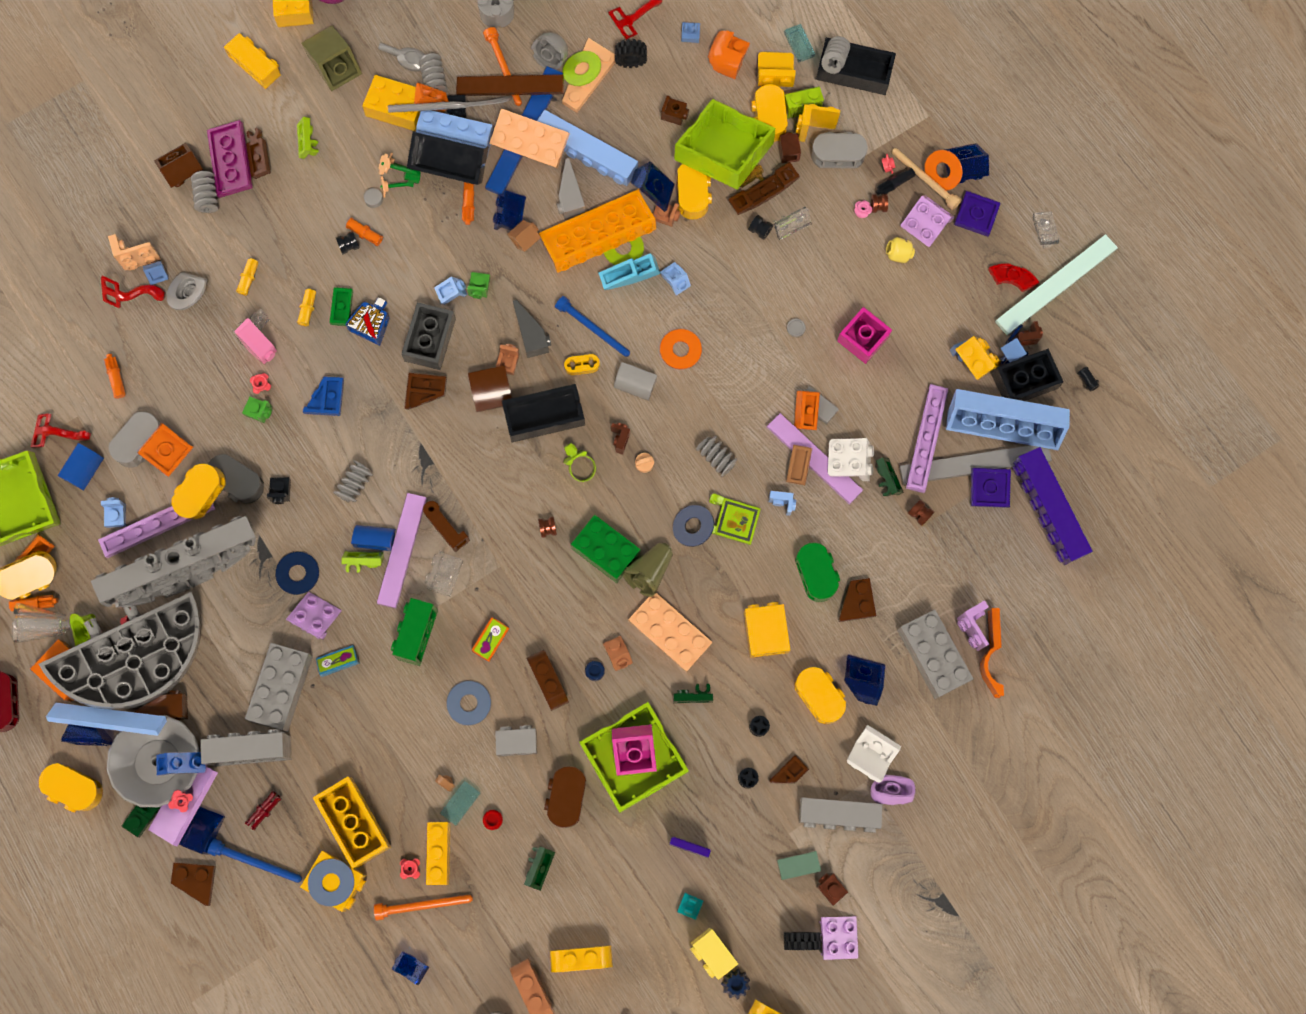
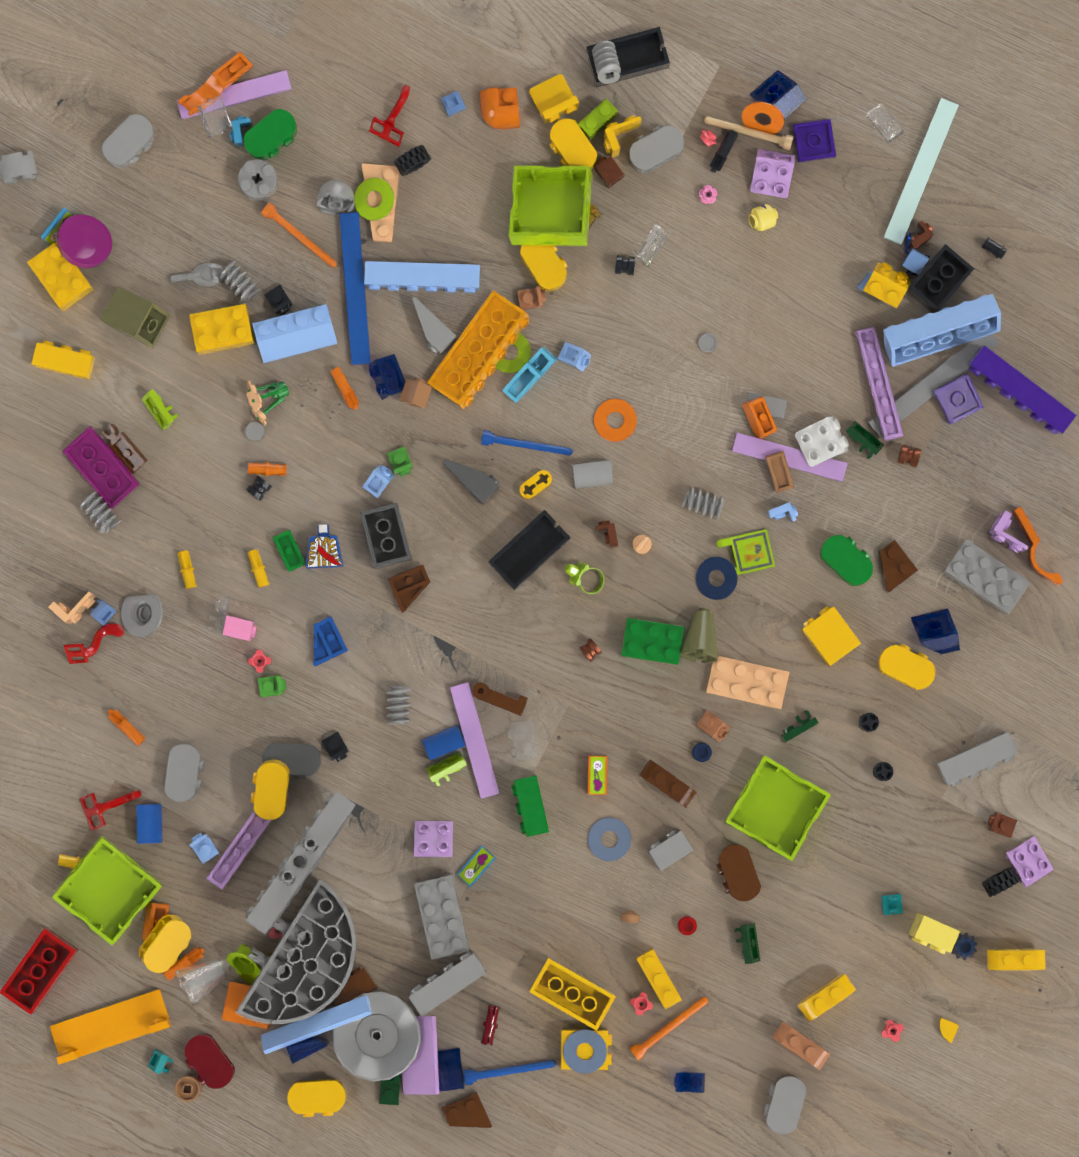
camera: 25 degrees left, 10 degrees up
(165, 449) = (215, 768): orange tile -> none
(178, 165) = (58, 499): reddish brown slope -> none
(179, 763) = (401, 1026): blue bracket -> none
(180, 795) = (416, 1054): coral plate -> none
(297, 587) = (407, 817): dark blue gear -> none
(427, 94) = (254, 308): orange slope -> none
(444, 105) = (277, 306): light grey piece -> none
(447, 157) = (304, 358): black piece -> none
(460, 803) = (651, 927): clear light blue tile -> none
(489, 388) = (468, 553): reddish brown slope -> none
(509, 357) = (467, 517): nougat bracket -> none
(510, 85) = (317, 253): reddish brown tile -> none
(529, 138) = (367, 297): light nougat plate -> none
(634, 750) = (775, 802): dark pink brick -> none
(653, 184) = (506, 280): clear blue slope -> none
(674, 111) = (478, 198): reddish brown brick -> none
(690, 847) = (866, 857): dark purple tile -> none
(765, 190) = (608, 226): reddish brown slope -> none
(790, 772) = (915, 746): reddish brown tile -> none
(798, 865) = (964, 820): sand green tile -> none
(799, 43) = (561, 58): clear light blue tile -> none
(864, 335) = (774, 319): dark pink brick -> none
(873, 754) = (978, 693): white bracket -> none
(879, 203) = (720, 181): copper wheel -> none
(893, 790) = (1010, 714): lavender piece -> none
(1013, 275) = (876, 183): red tile -> none

